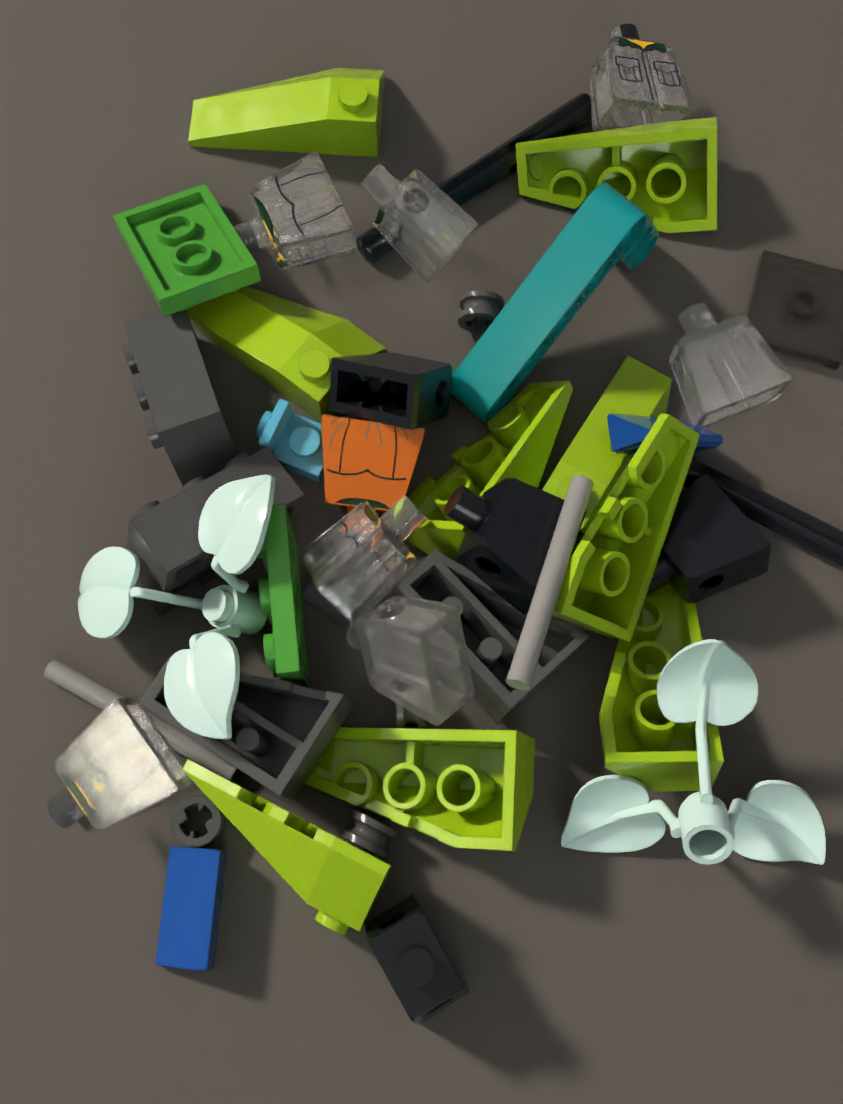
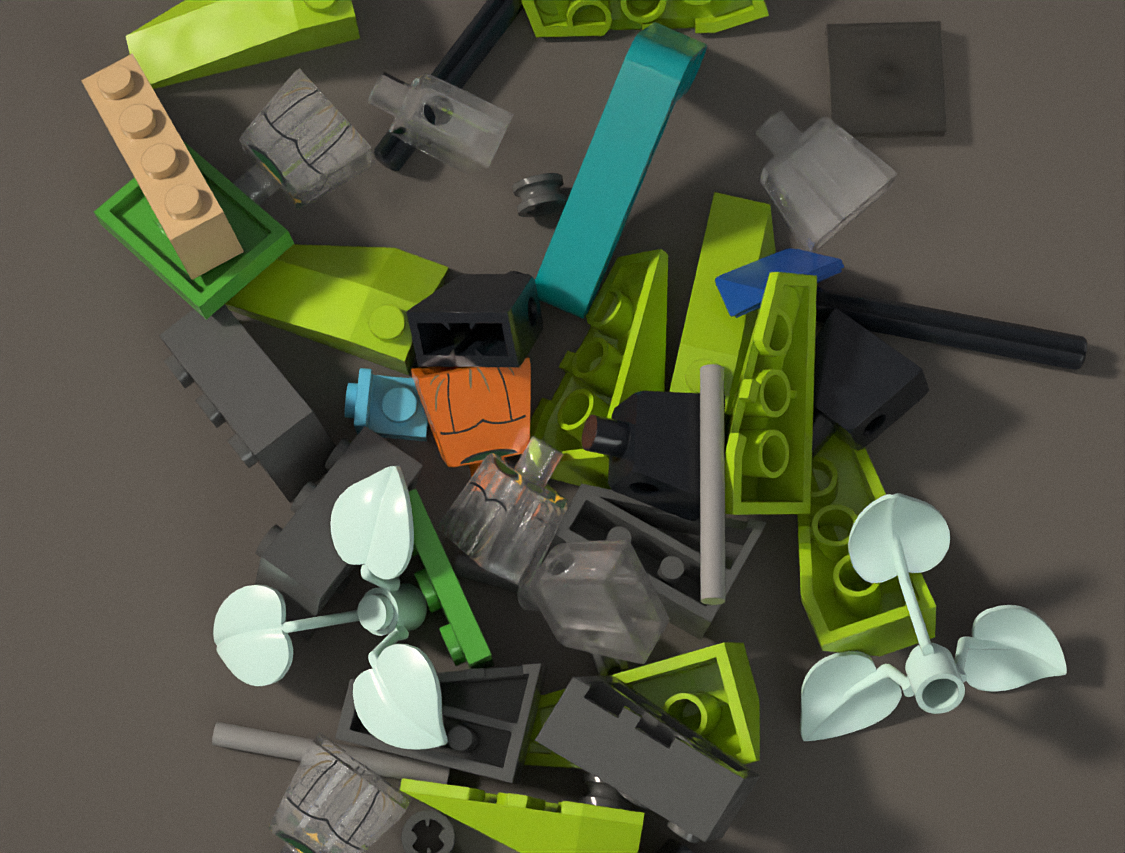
camera: 20 degrees left, 5 degrees up
(174, 190) = (163, 166): none -> tan brick
(411, 813) = (648, 756): none -> dark grey wedge

